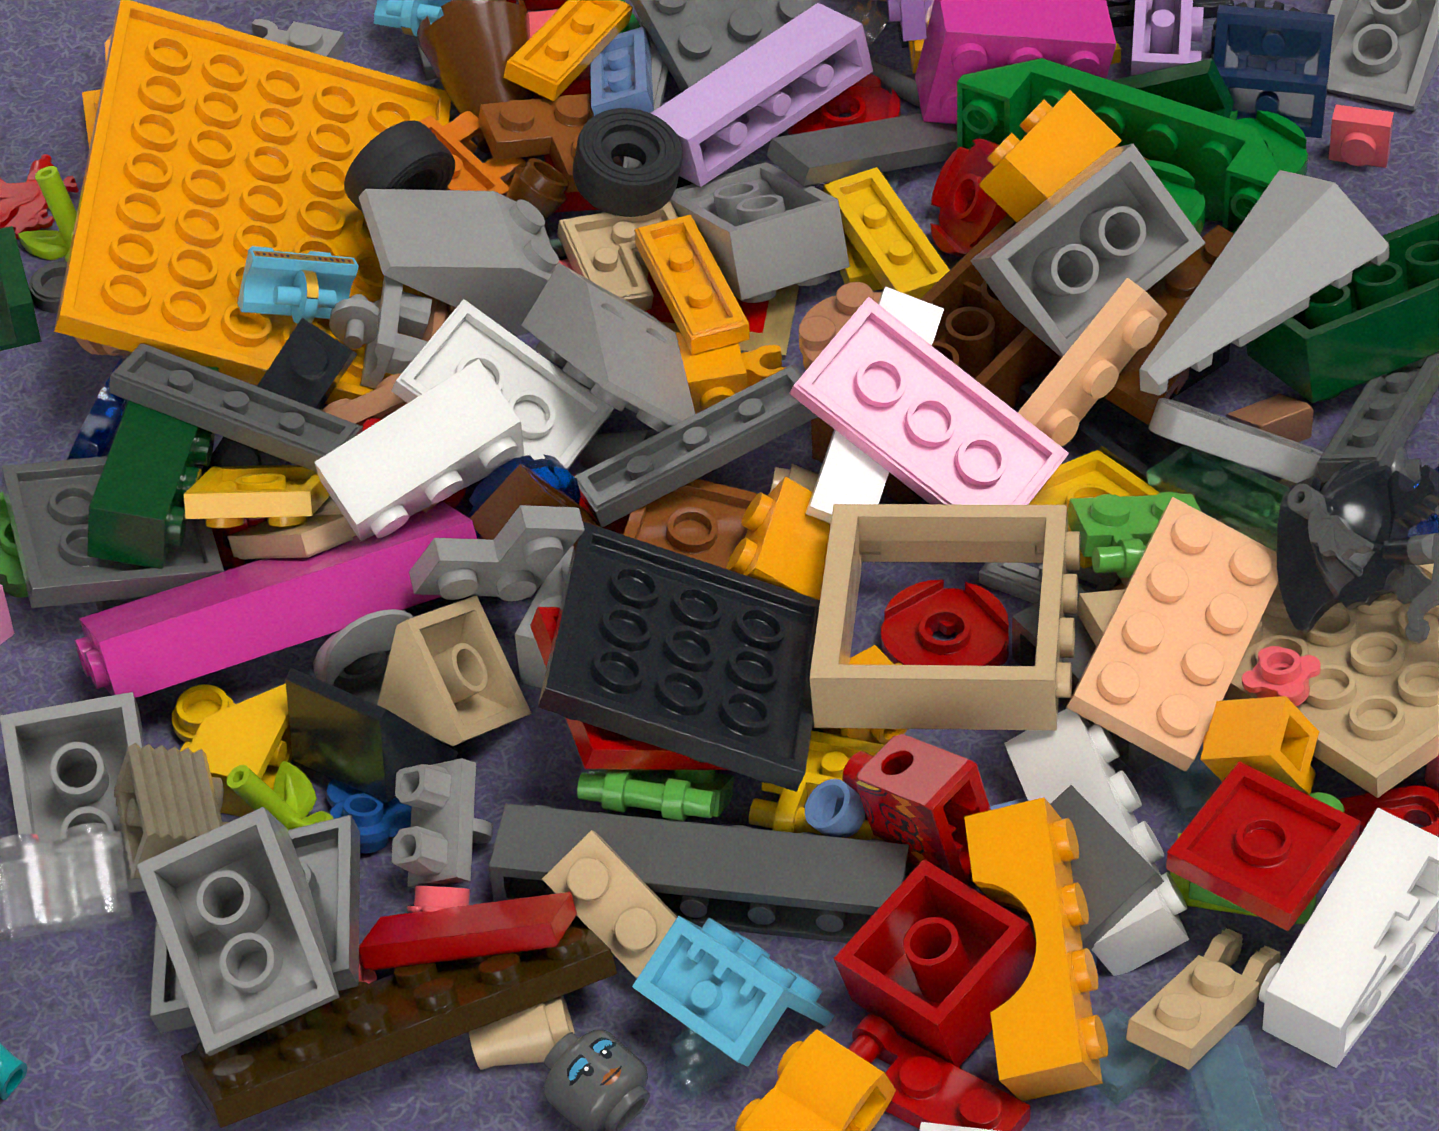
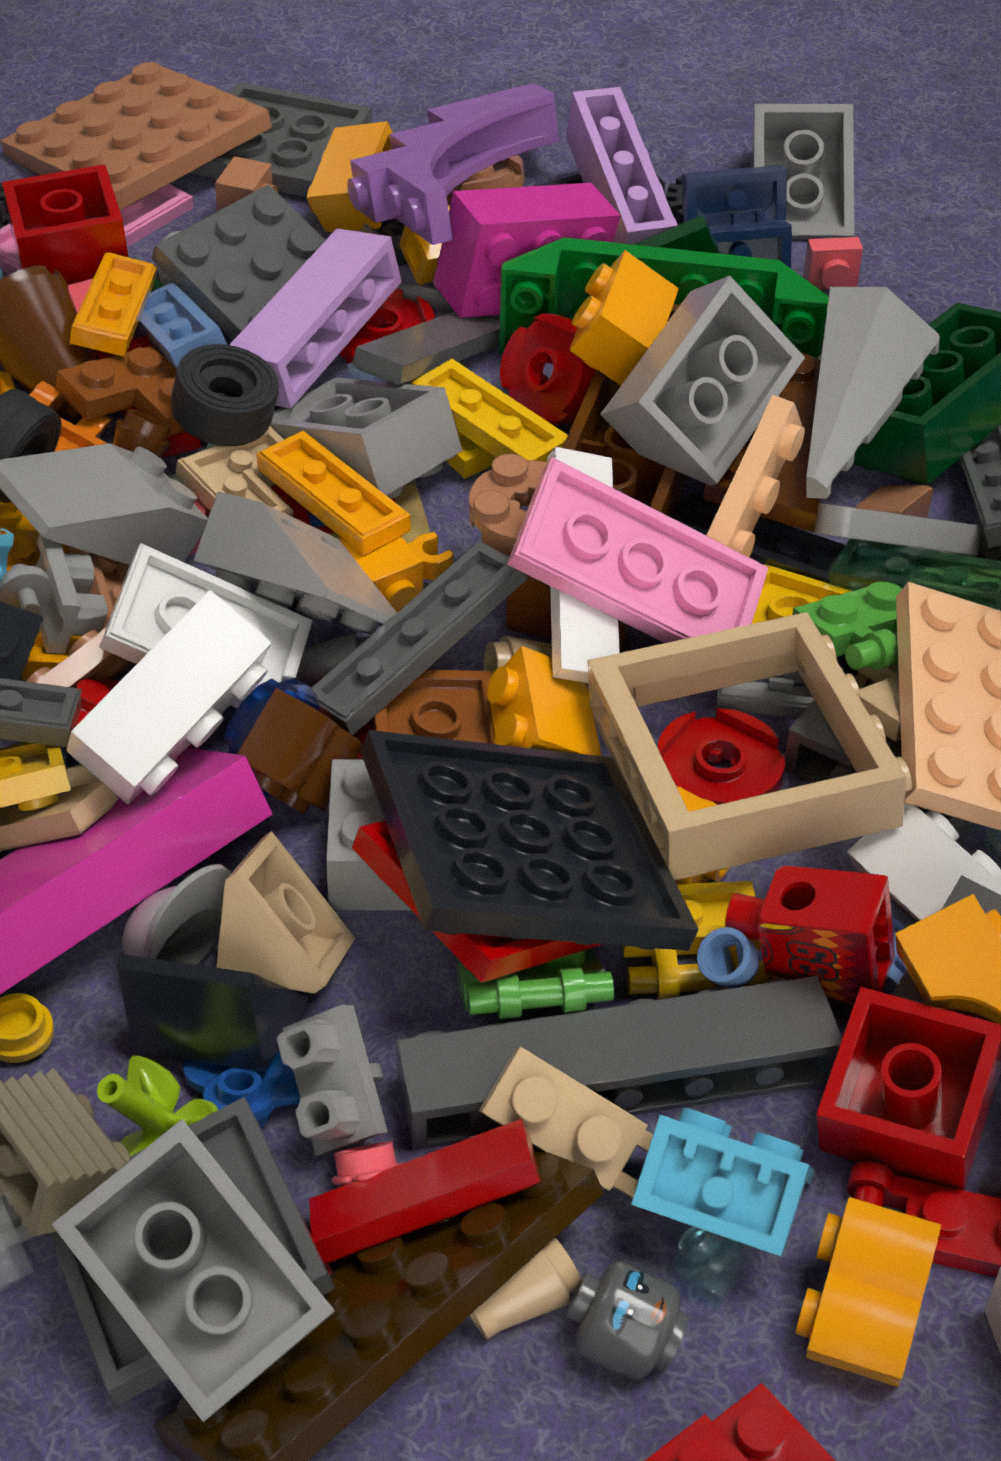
camera: 25 degrees left, 0 degrees up
(249, 735) = (84, 1043): yellow slope -> none
(502, 567) = (300, 791): light grey plate -> none

